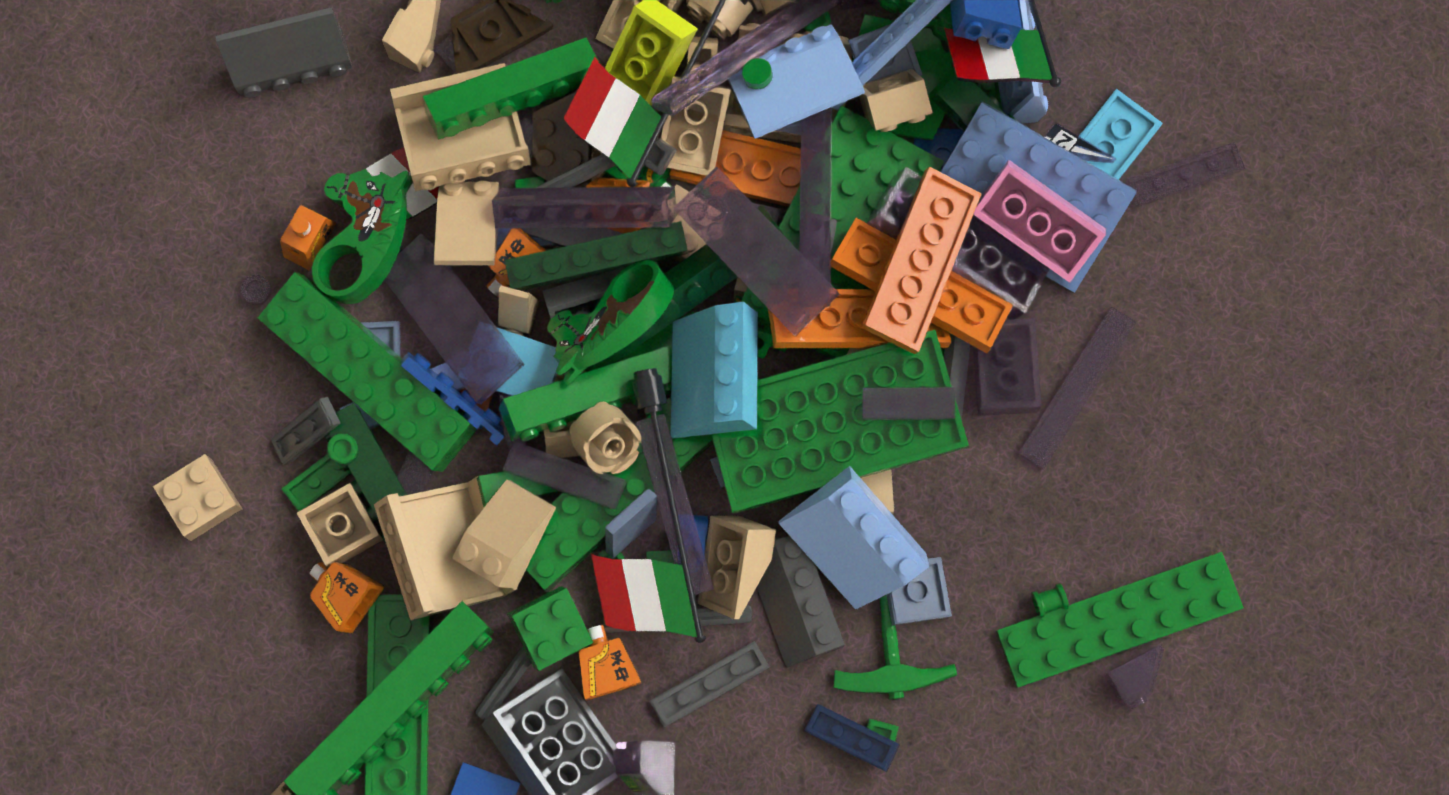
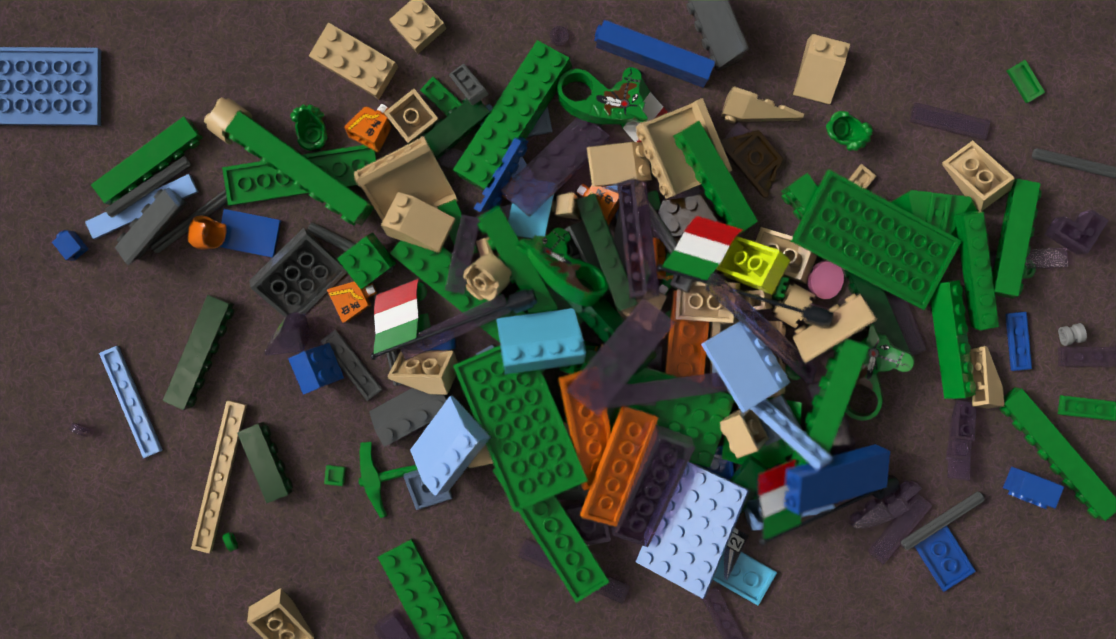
camera: 80 degrees right, 10 degrees up
(235, 605) = (353, 61): none -> tan brick
(306, 235) = (598, 61): orange torso -> none
(310, 150) = (653, 53): none -> blue brick
(326, 688) = (309, 127): none -> green hair
(342, 449) = (458, 110): green tile -> none
(631, 523) = (440, 301): sand blue tile -> none
(699, 21) = (777, 295): none -> green tile
(706, 732) = (316, 368): none -> blue brick
(757, 73) = (746, 339): green tile -> none
(852, 737) = (330, 458): dark blue tile -> none
(909, 403) = (535, 470): clear purple tile -> none
(921, 260) = (632, 466): plate -> none
(1030, 390) = (563, 546): none -> green plate
(1039, 221) = (673, 537): bright pink brick -> none
(1050, 600) = (434, 570): green bush -> none

